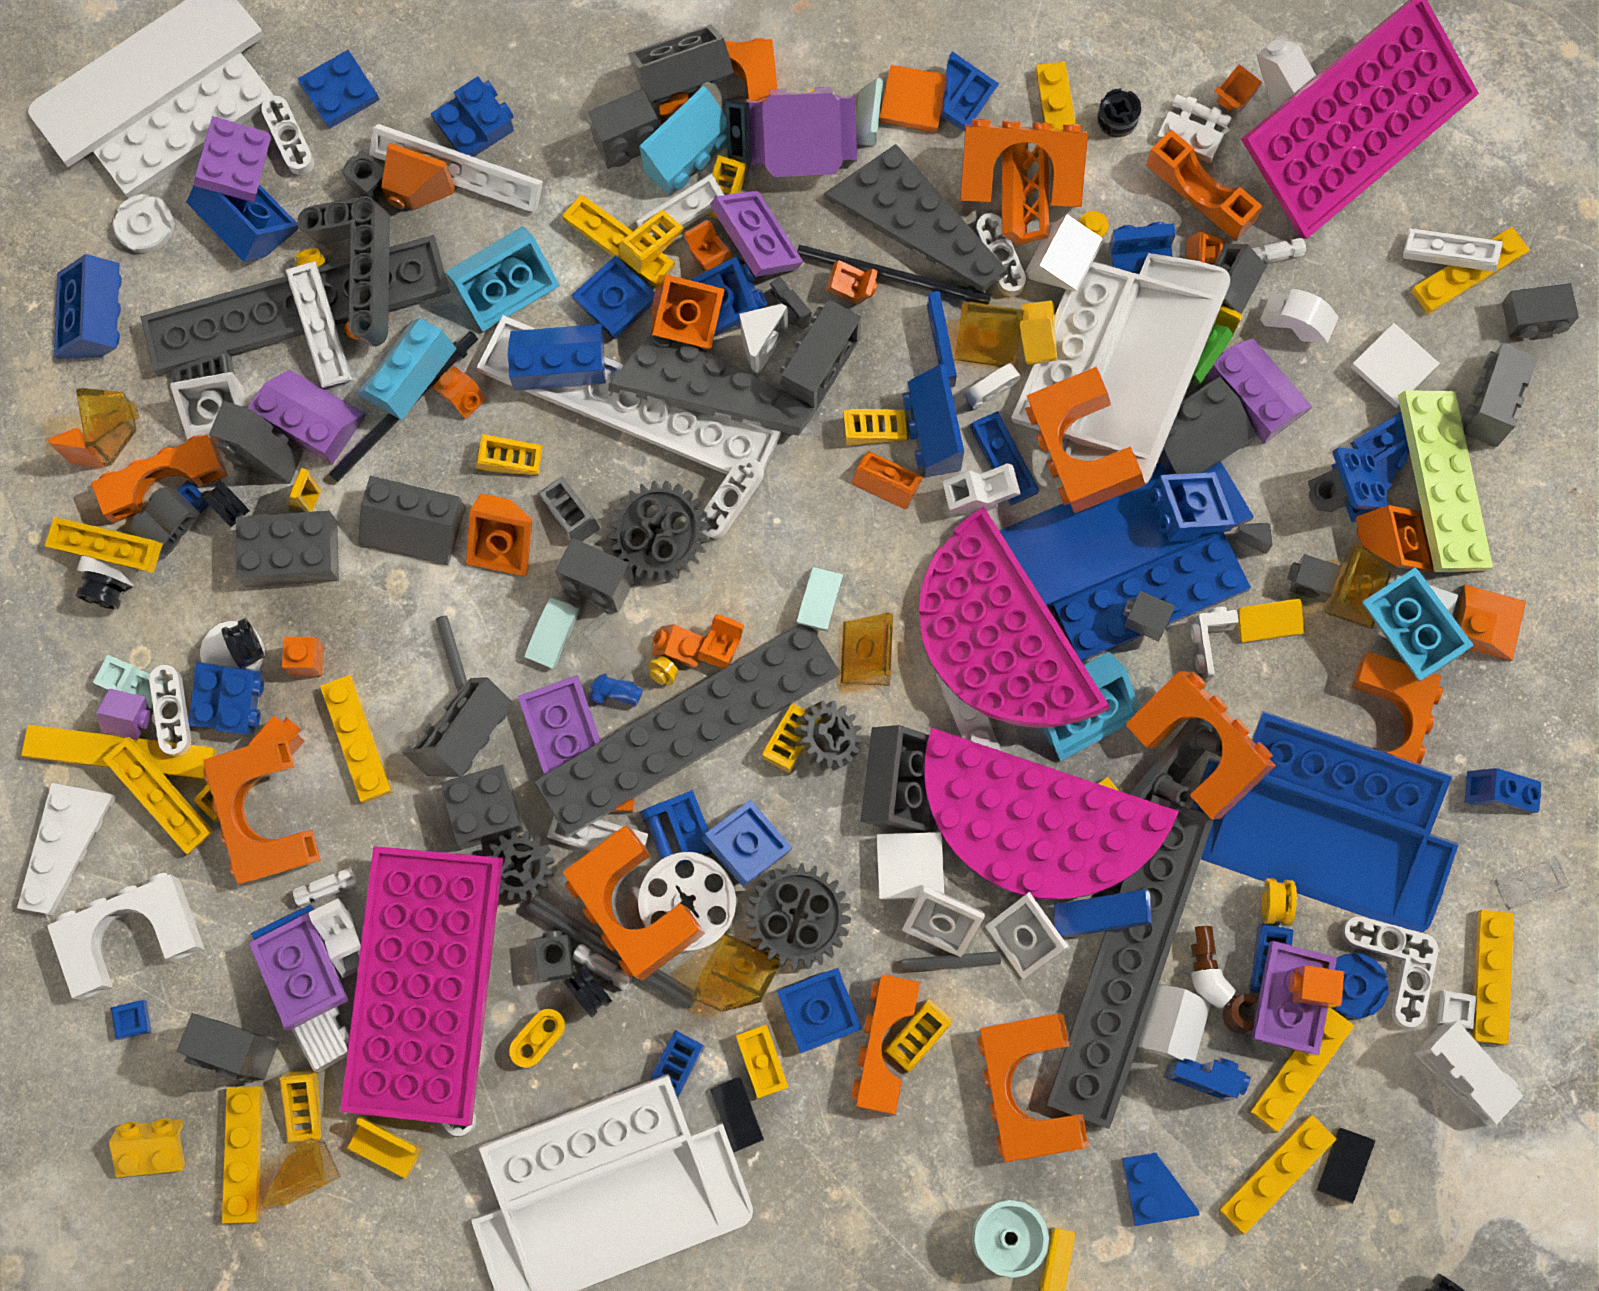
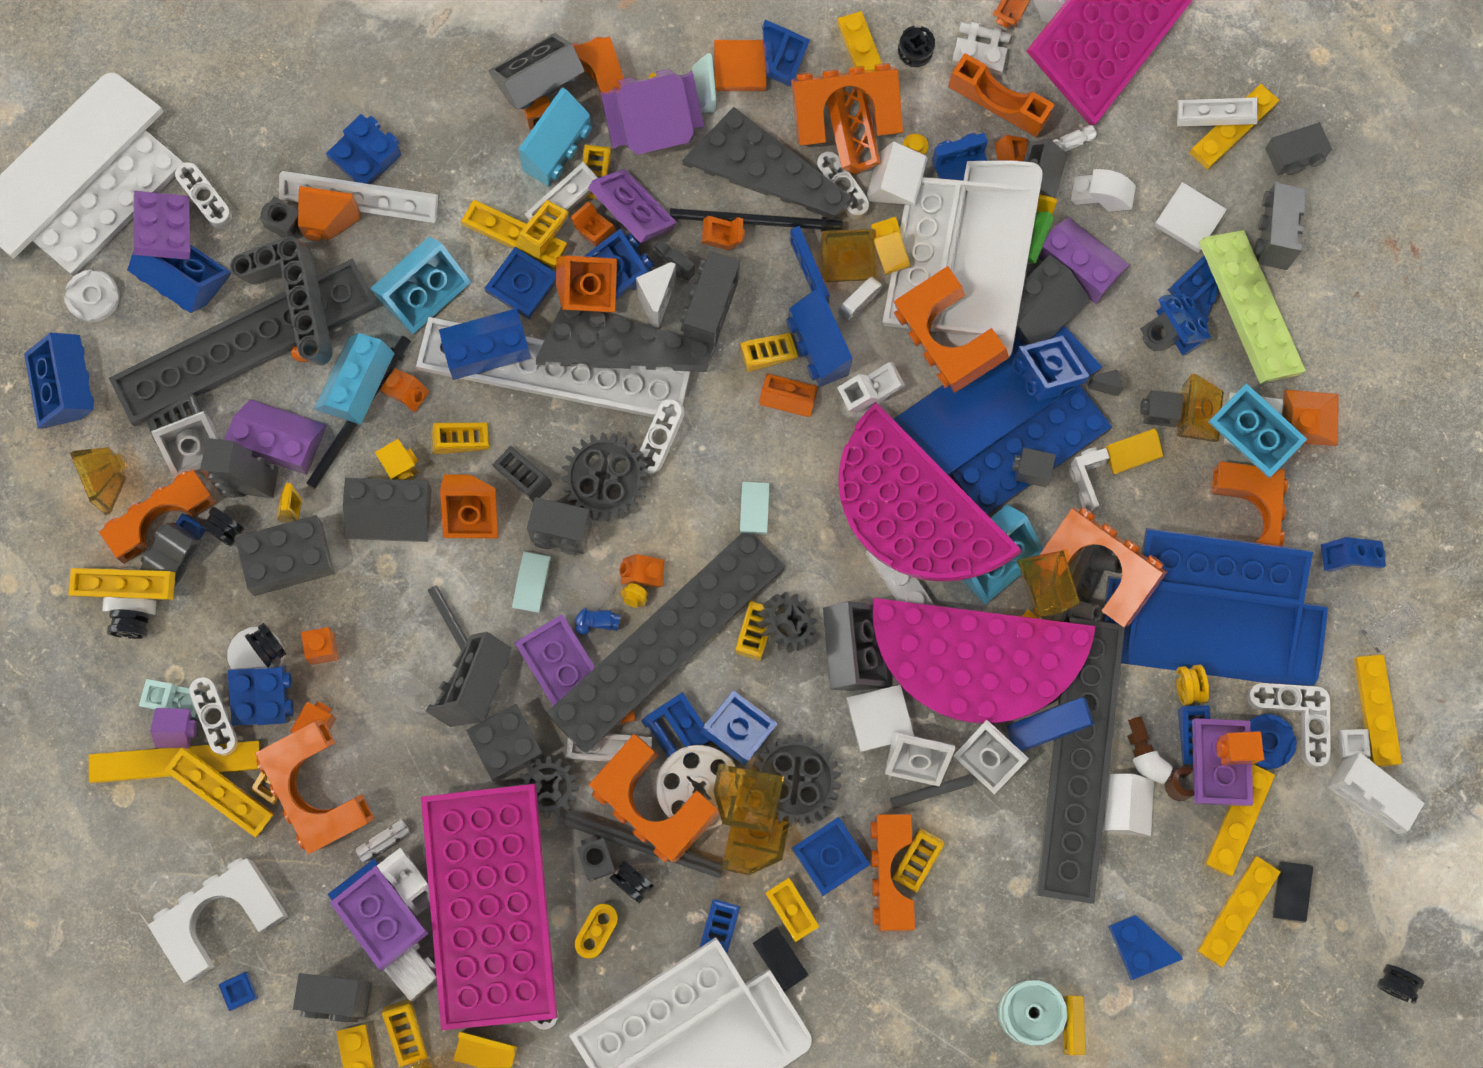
camera: 20 degrees left, 0 degrees up
(61, 842) = (142, 846): white wing -> none
(73, 449) = (78, 505): orange slope -> none
(308, 256) = (247, 300): yellow plate -> none
(319, 324) = (269, 355): white tile -> none
(338, 89) = (239, 146): blue plate -> none
(356, 739) = (381, 707): yellow plate -> none
(433, 469) = (397, 461): none -> yellow brick
(601, 966) = (638, 858): white axle -> none
(622, 127) = (498, 136): dark grey brick -> none
(721, 642) = (679, 560): orange bracket -> none
(737, 923) = (747, 797): none -> clear yellow slope
(738, 129) = (598, 119): black slope -> none
(867, 650) = (805, 543): clear yellow slope -> none
(1000, 449) = (880, 352): blue tile -> none
(1004, 1050) = (1021, 924): orange arch -> none
(1136, 751) = (1048, 583): none -> clear yellow slope
(1214, 1078) = (1174, 843): blue plate -> none
(1396, 537) = (1222, 361): orange slope -> none

